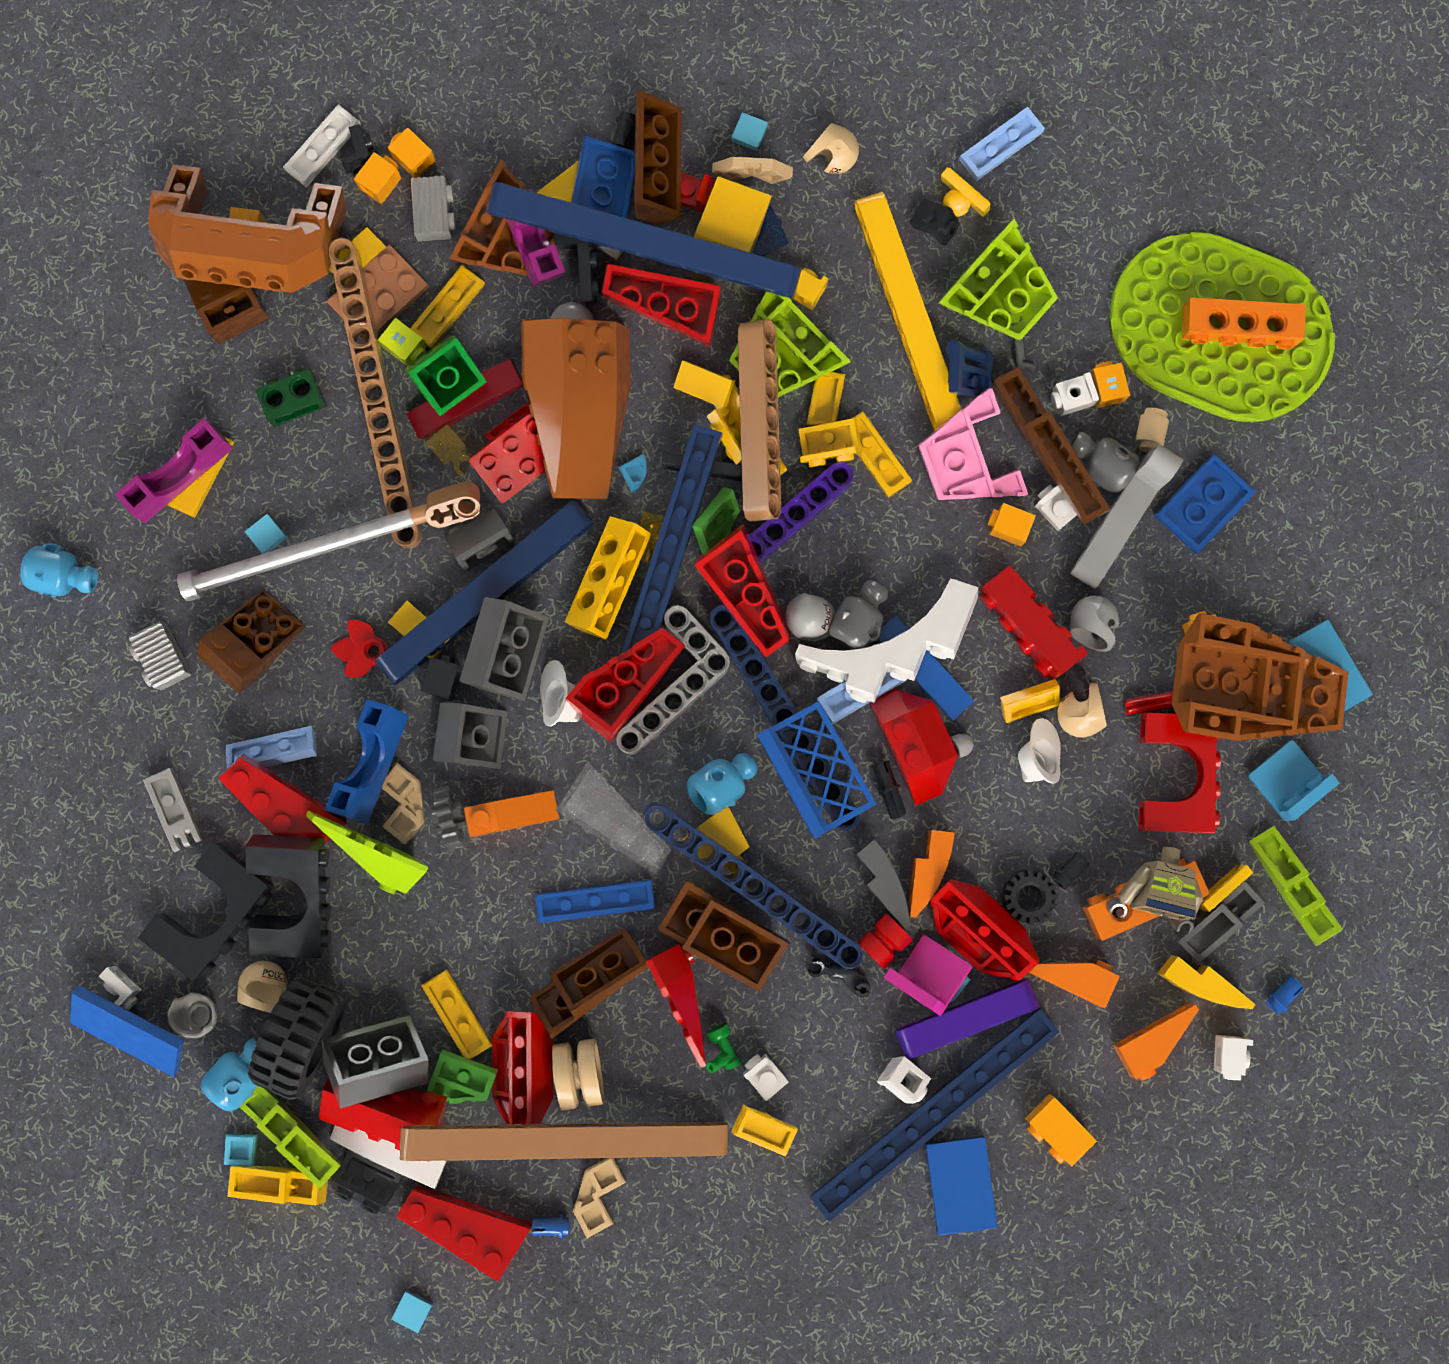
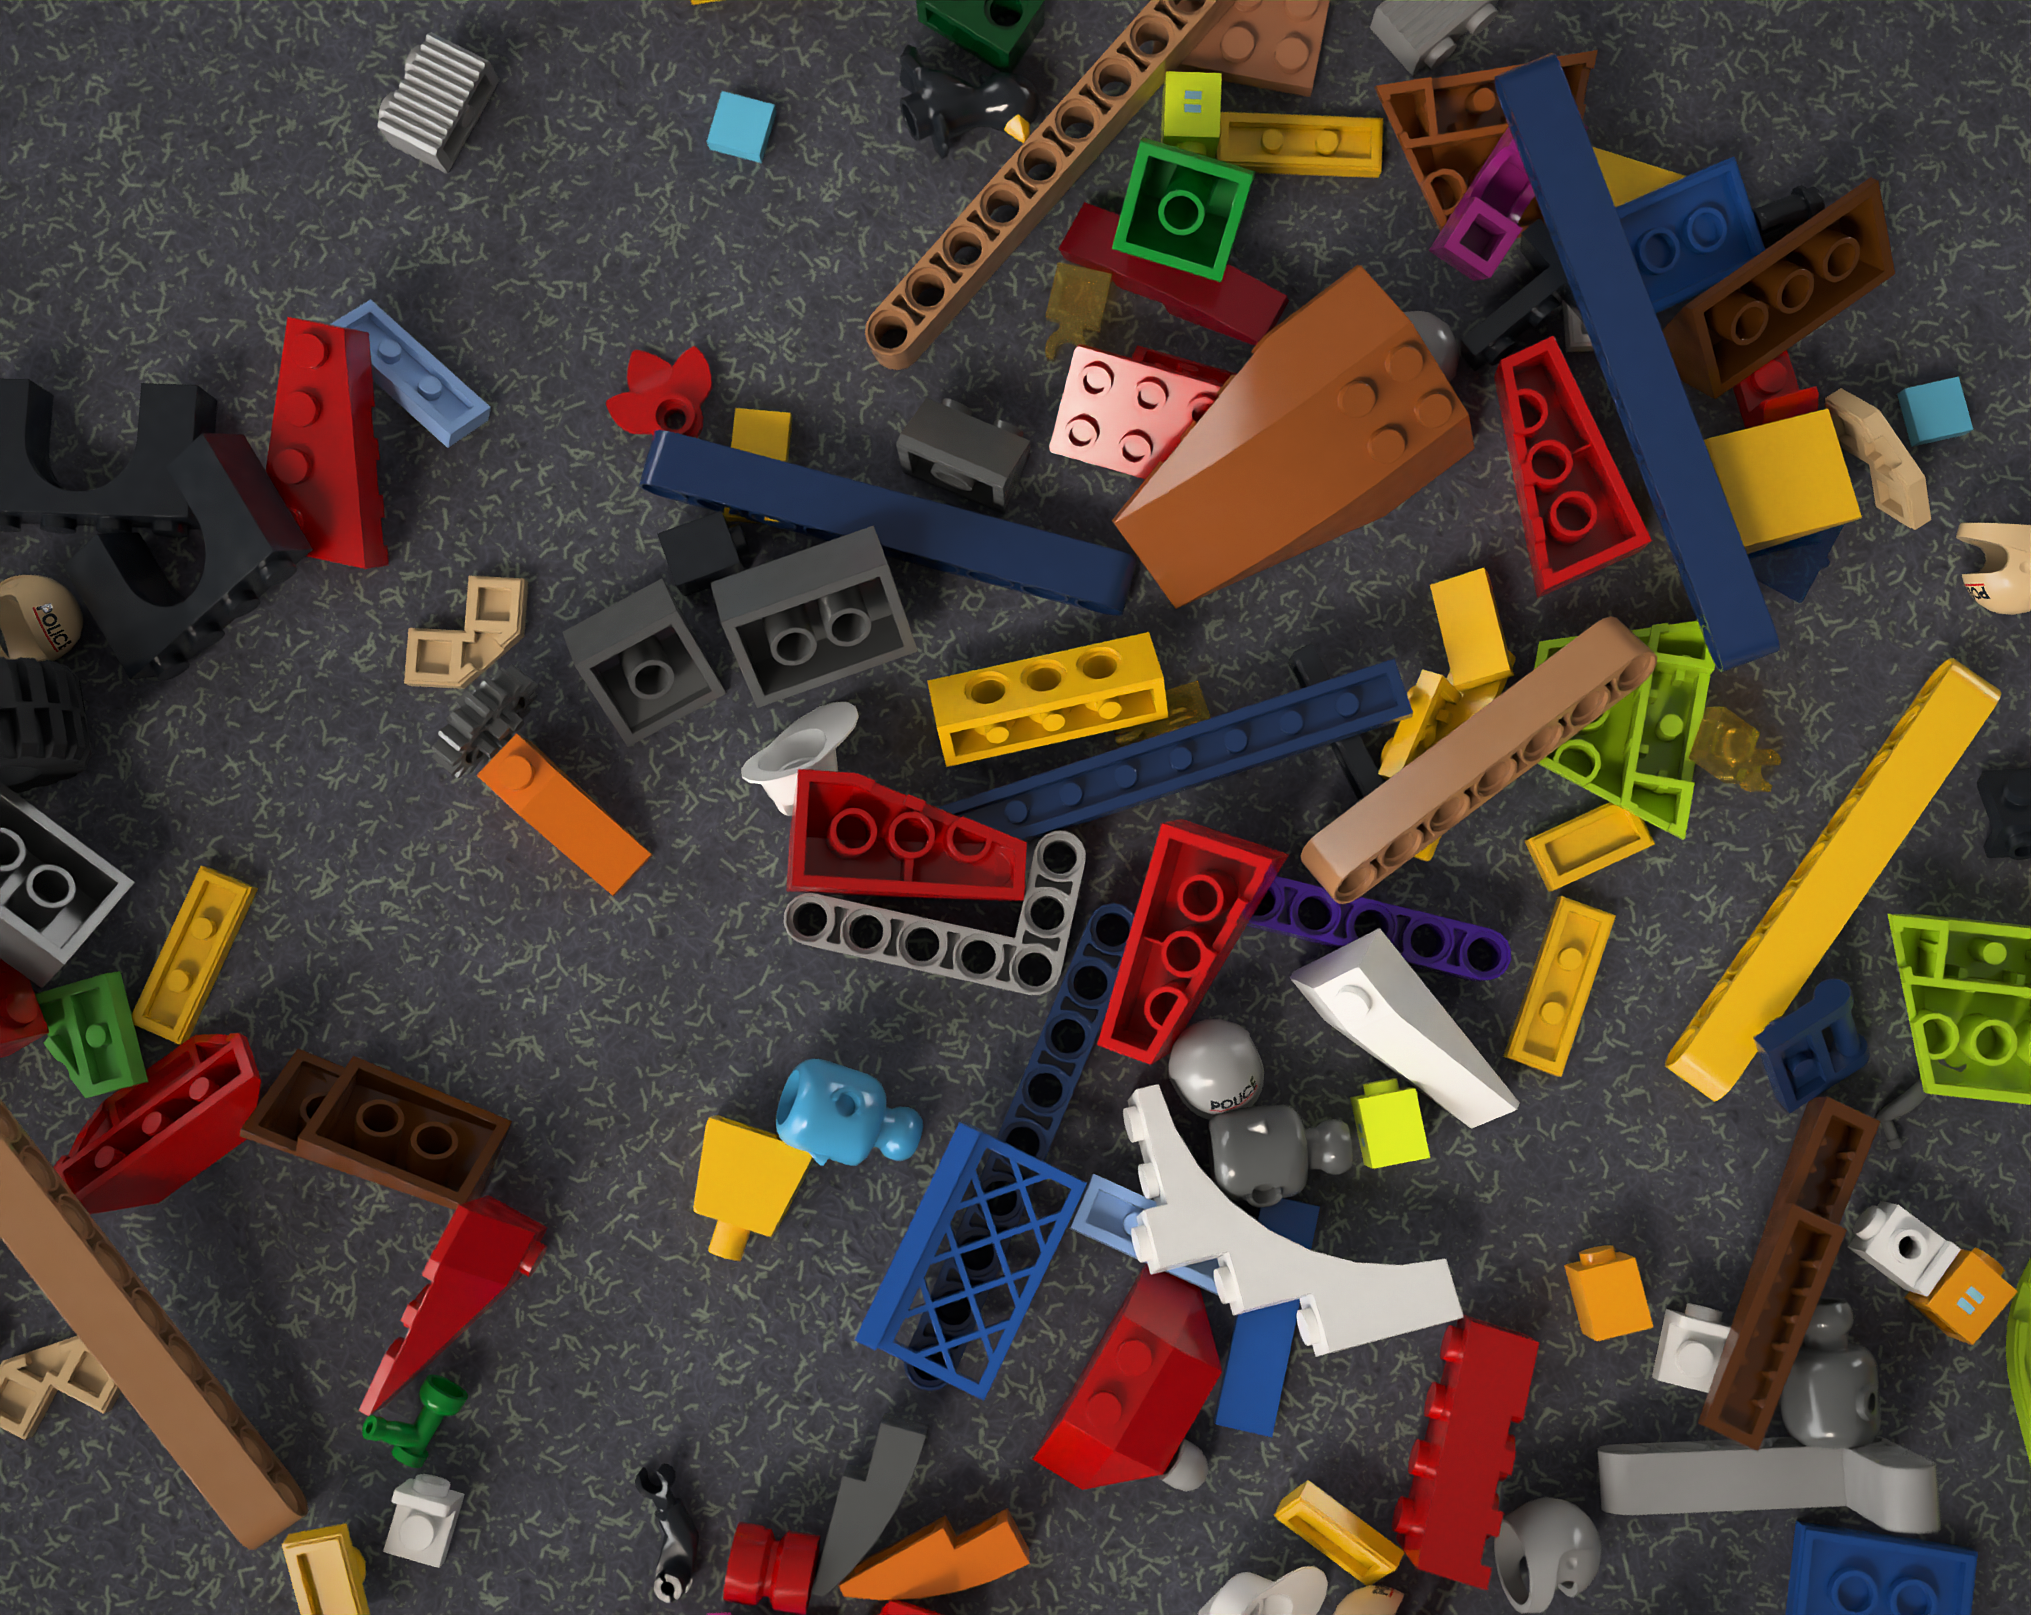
camera: 60 degrees right, 0 degrees up
(172, 808) = (215, 292): light grey hinge -> none
(249, 640) = (557, 218): reddish brown slope -> none
(324, 440) = (950, 106): none -> black animal
(380, 733) = (425, 553): blue arch -> none
(383, 862) = (345, 663): lime wedge -> none
(441, 509) = (964, 359): flat silver piece -> none
(573, 1074) = (214, 1218): tan wheel -> none
(595, 901) = (520, 1046): blue tile -> none
(607, 815) = (664, 983): clear wedge -> none
(634, 472) = (1249, 621): dark azure tile -> none
(716, 519) = (1265, 806): bright green wing -> none
(722, 935) = (596, 1295): reddish brown slope -> none
(760, 897) = (702, 1316): dark blue beam -> none
(810, 288) = (1753, 687): yellow brick -> none
(827, 317) = (1728, 750): none -> clear yellow plate
(829, 441) = (1526, 898): yellow bracket -> none
(837, 530) = (1392, 1015): none -> white wedge
(882, 563) = (1389, 1124): none -> neon yellow brick
(889, 789) = (1027, 1398): black axle -> none
(957, 462) = (1648, 1129): bright pink wing -> none
(1152, 429) = (1939, 1420): tan brick -> none

